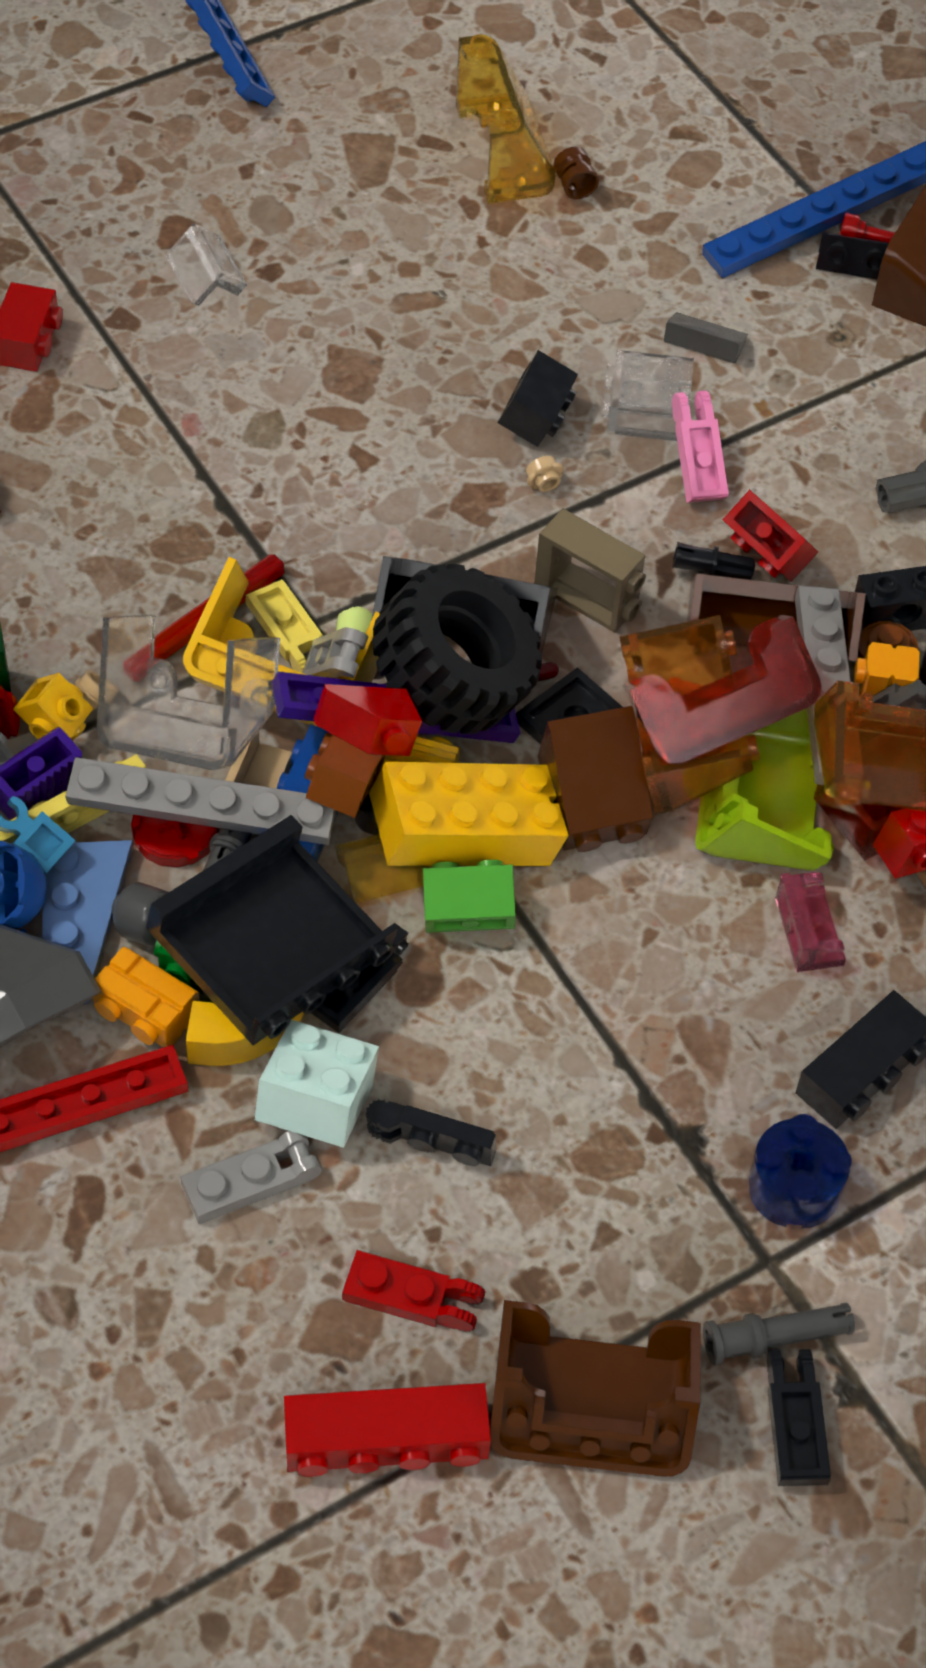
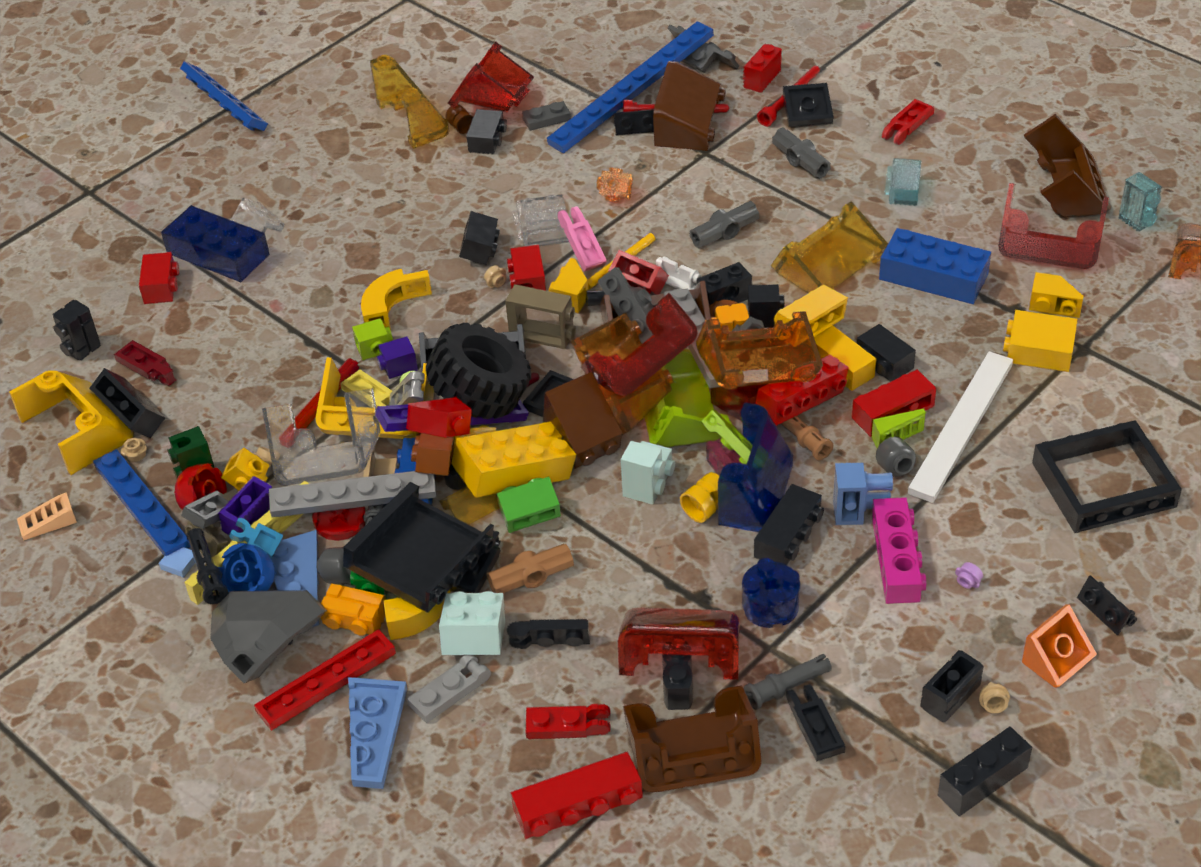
camera: 10 degrees left, 10 degrees down
(119, 1200) = (373, 728): none -> medium blue wing
(129, 291) = (215, 243): none -> clear blue brick
(318, 530) = (369, 336): none -> lime brick
(346, 575) = (397, 357): none -> dark purple brick
(364, 454) = (390, 290): none -> yellow arch
(437, 1010) = (530, 569): none -> medium nougat piece
(597, 478) = (526, 267): none -> red brick
(607, 1269) = (677, 681): none -> black brick
(609, 207) = (486, 131): none -> black brick
(632, 1206) = (679, 633): none -> clear red windscreen
(649, 126) = (494, 83): none -> clear red windscreen
(655, 526) = (572, 283): none -> yellow slope
(670, 893) = (645, 470): none -> light aqua brick
(704, 337) = (564, 185): dark grey slope -> none
(715, 203) = (546, 115): none -> dark grey plate
(737, 592) = (627, 299): none -> dark grey bracket
(752, 968) = (701, 499): none -> yellow wheel
(765, 493) = (633, 250): none -> yellow bar
(796, 366) = (622, 187): none -> clear orange brick
(825, 990) = (754, 489): none -> clear blue windscreen
(827, 887) = (730, 435): none -> lime hinge
(834, 558) = (678, 277): none -> white hinge

